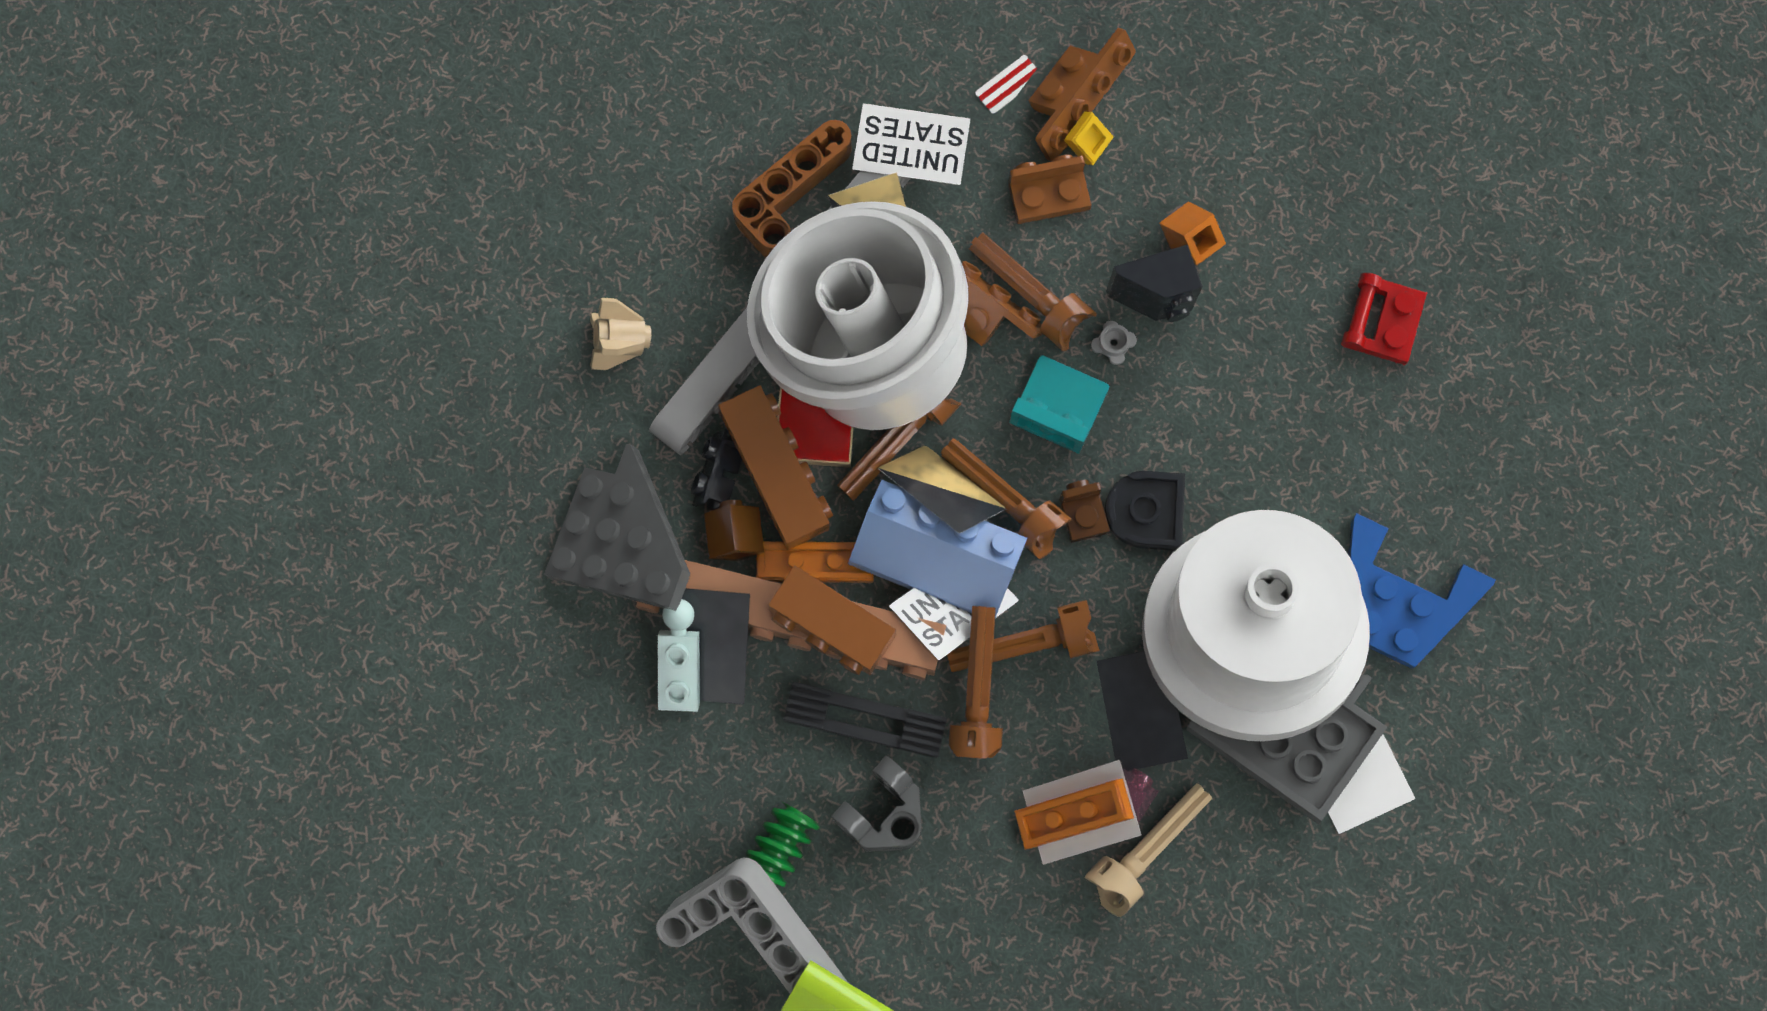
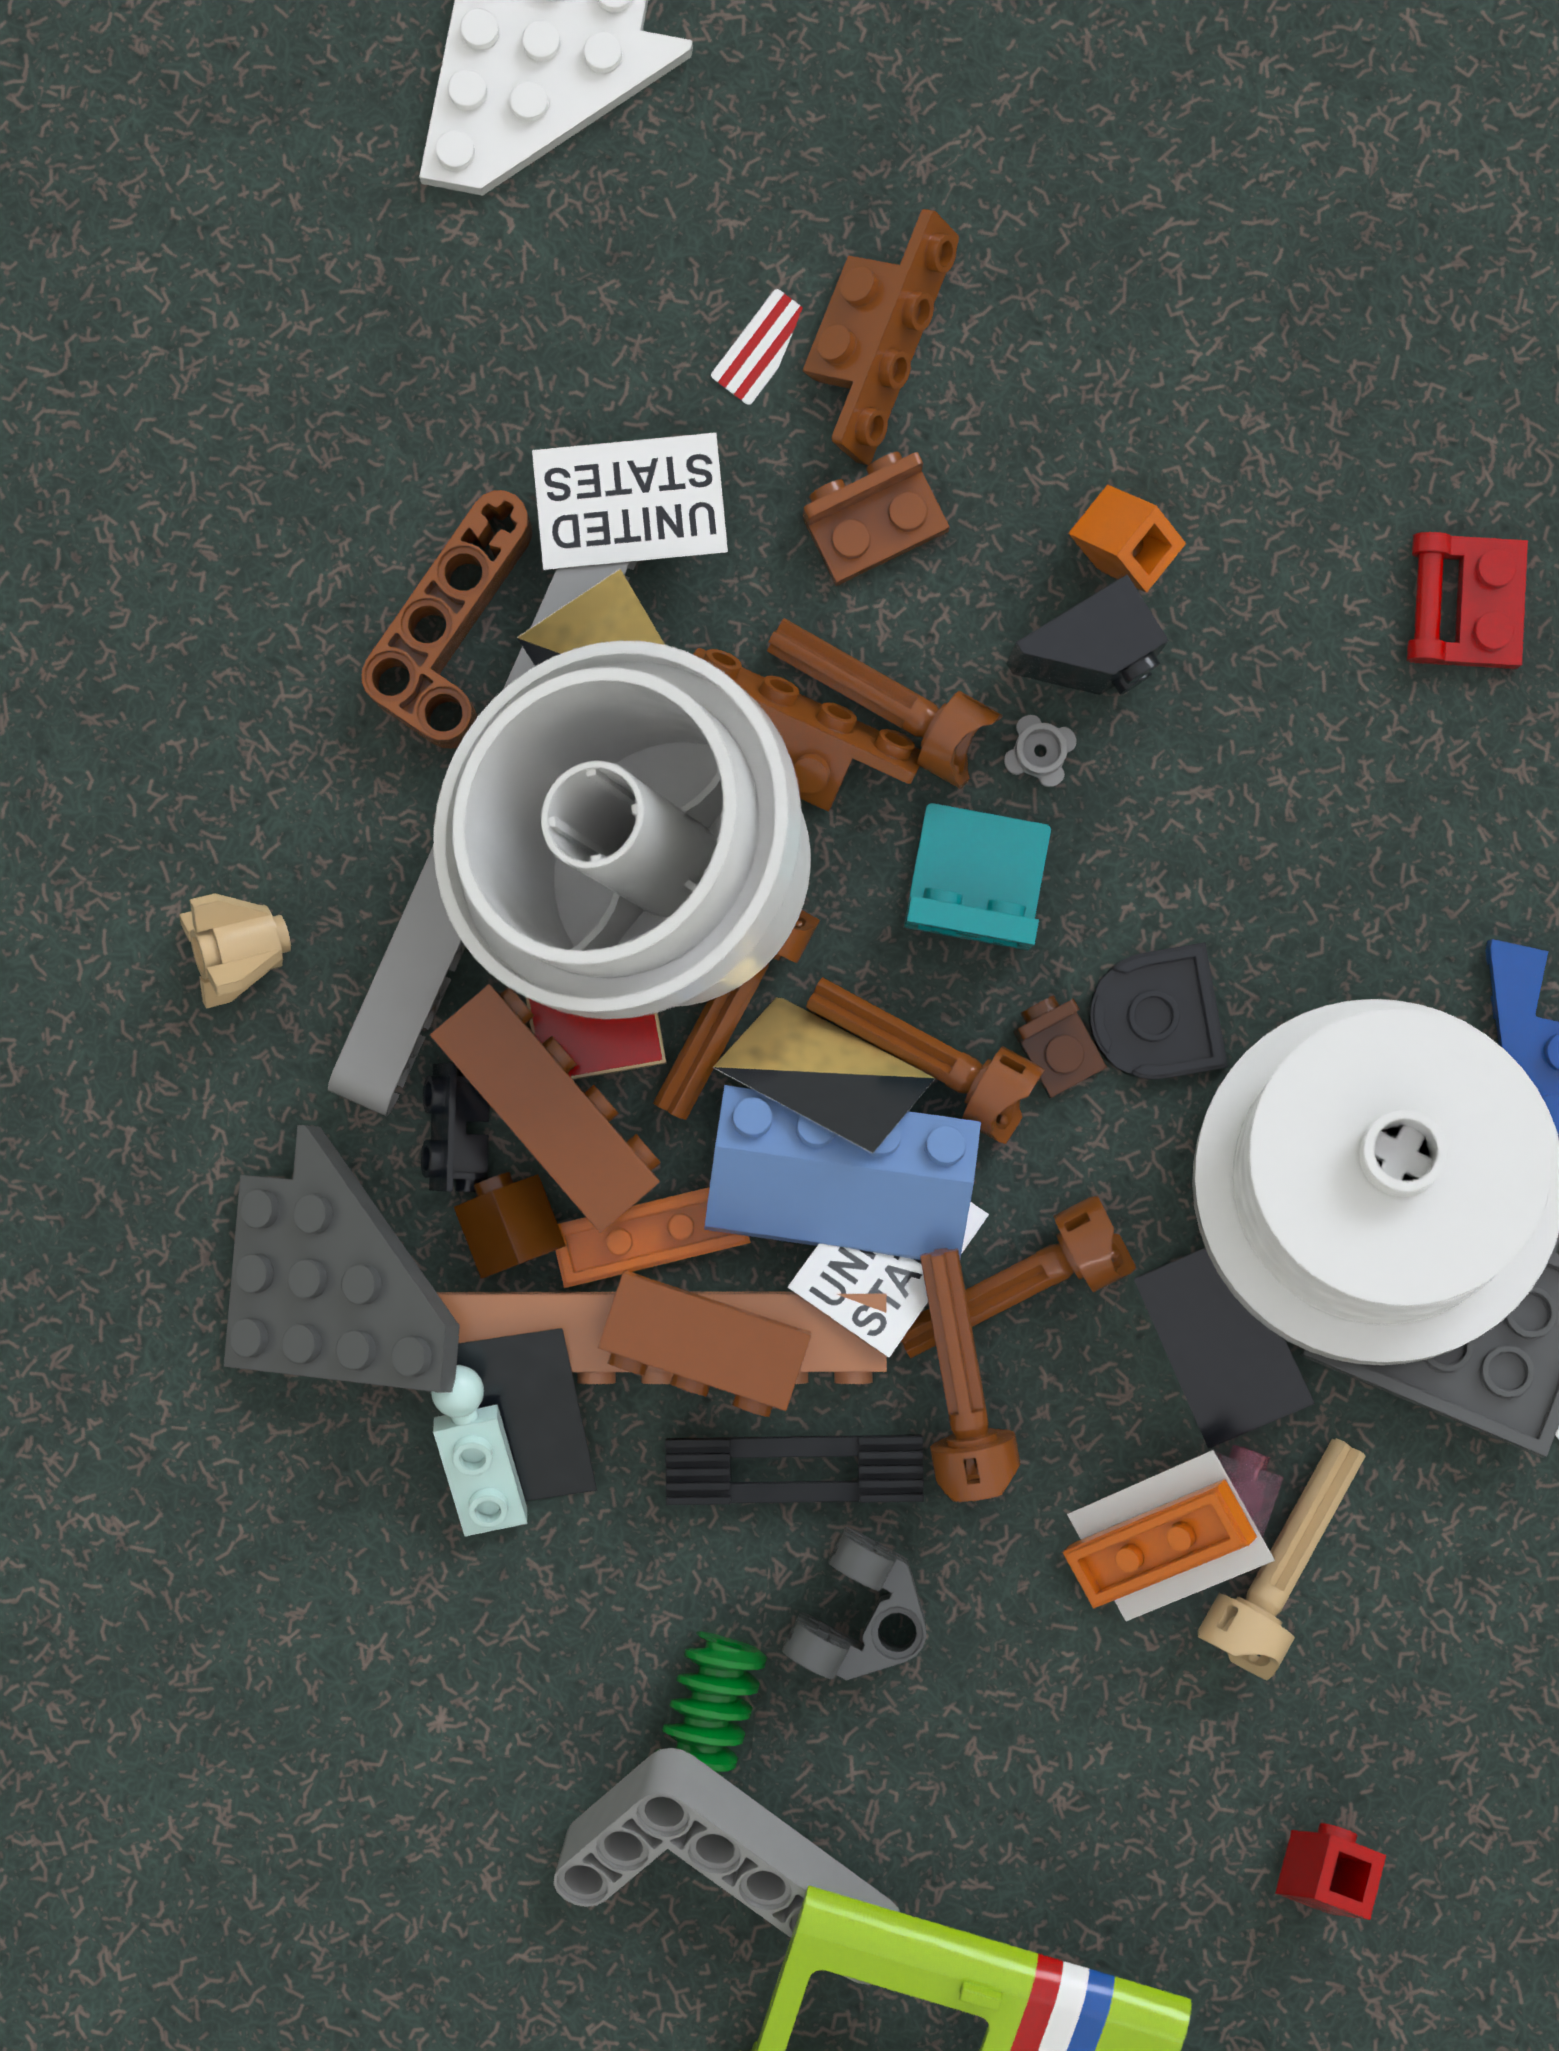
camera: 15 degrees left, 10 degrees up
(1088, 138) = (918, 412): yellow tile -> none

